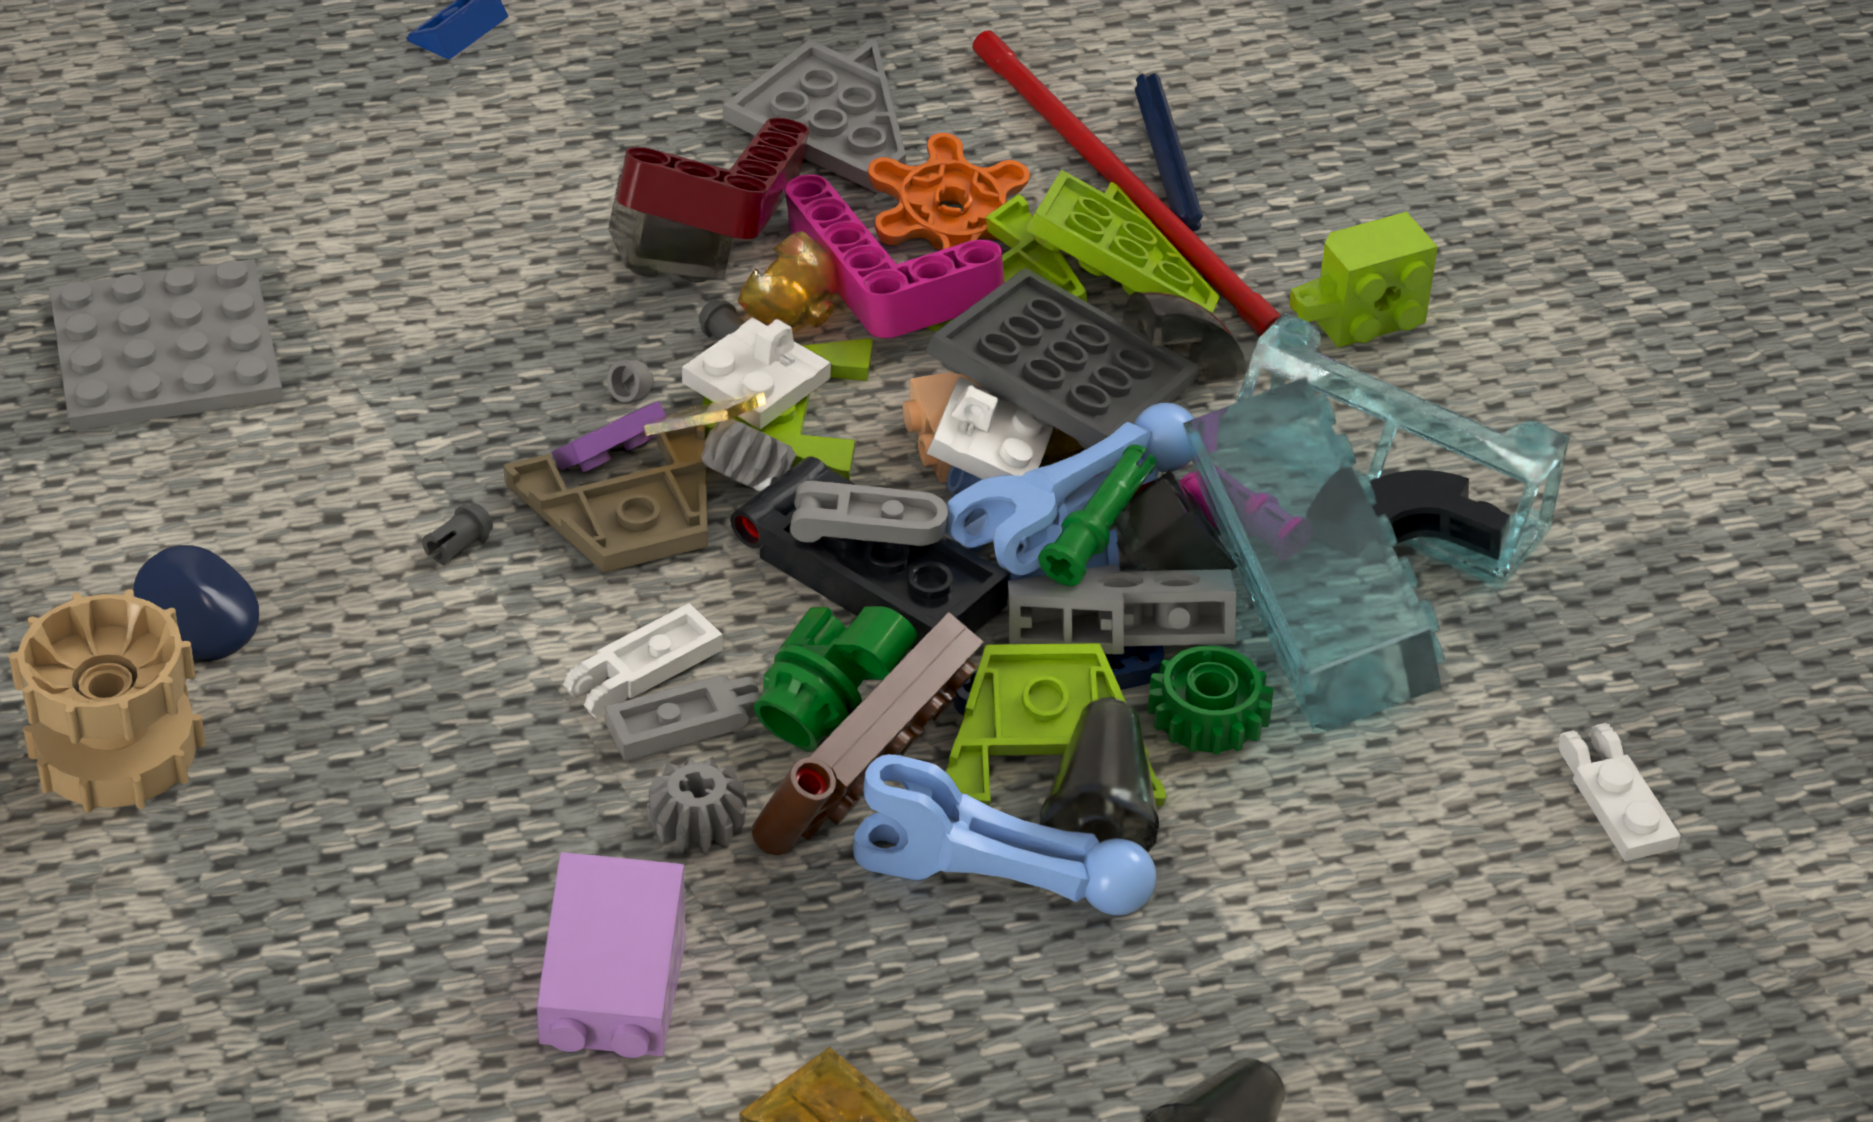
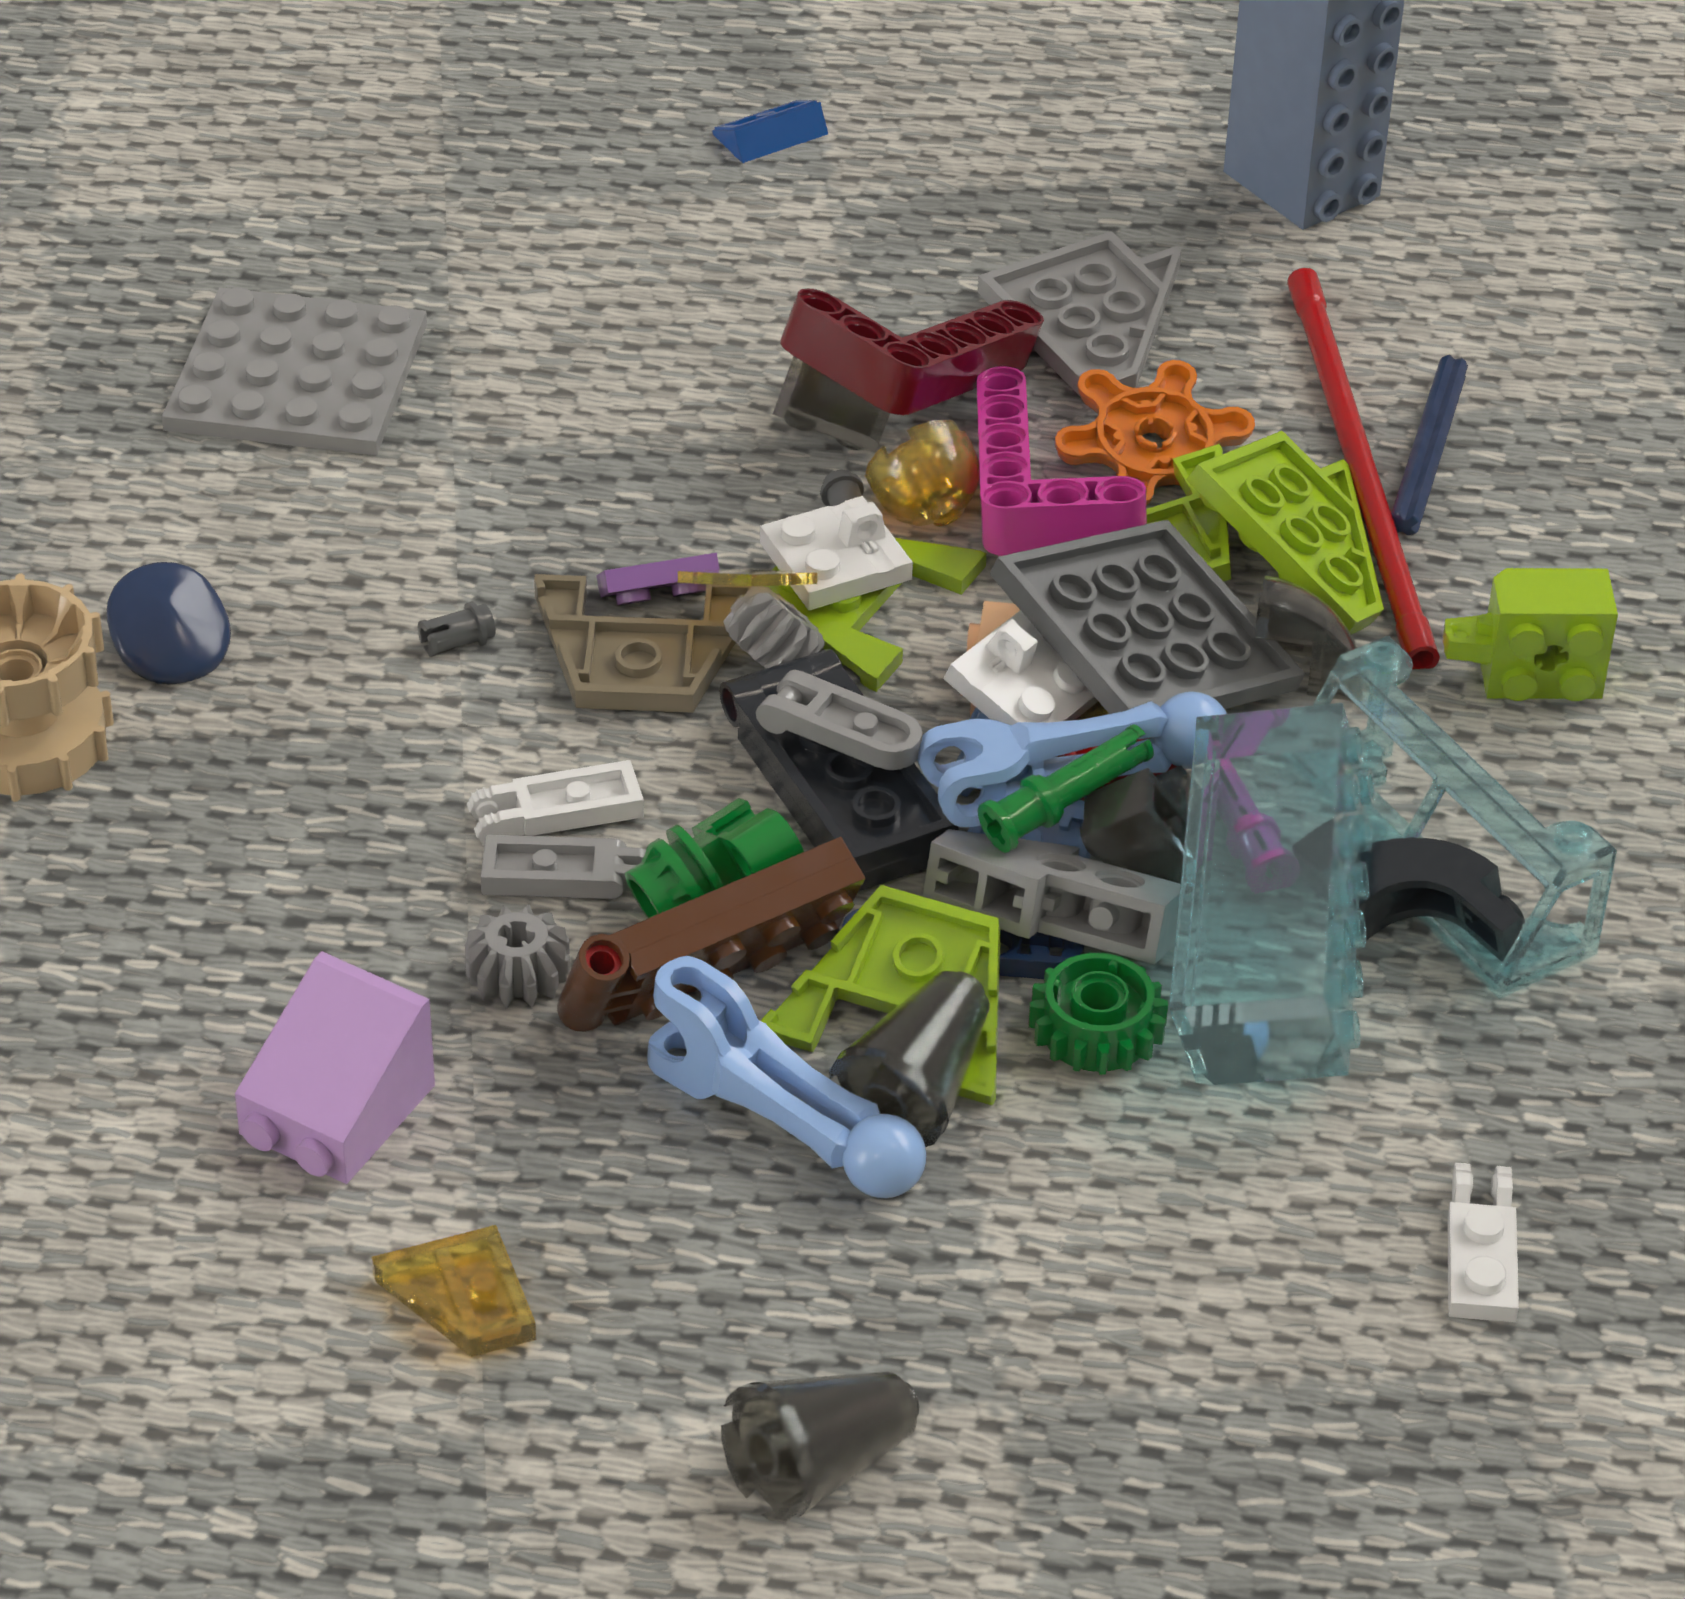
camera: 25 degrees right, 0 degrees up
(625, 372) = (716, 527): light grey hinge -> none

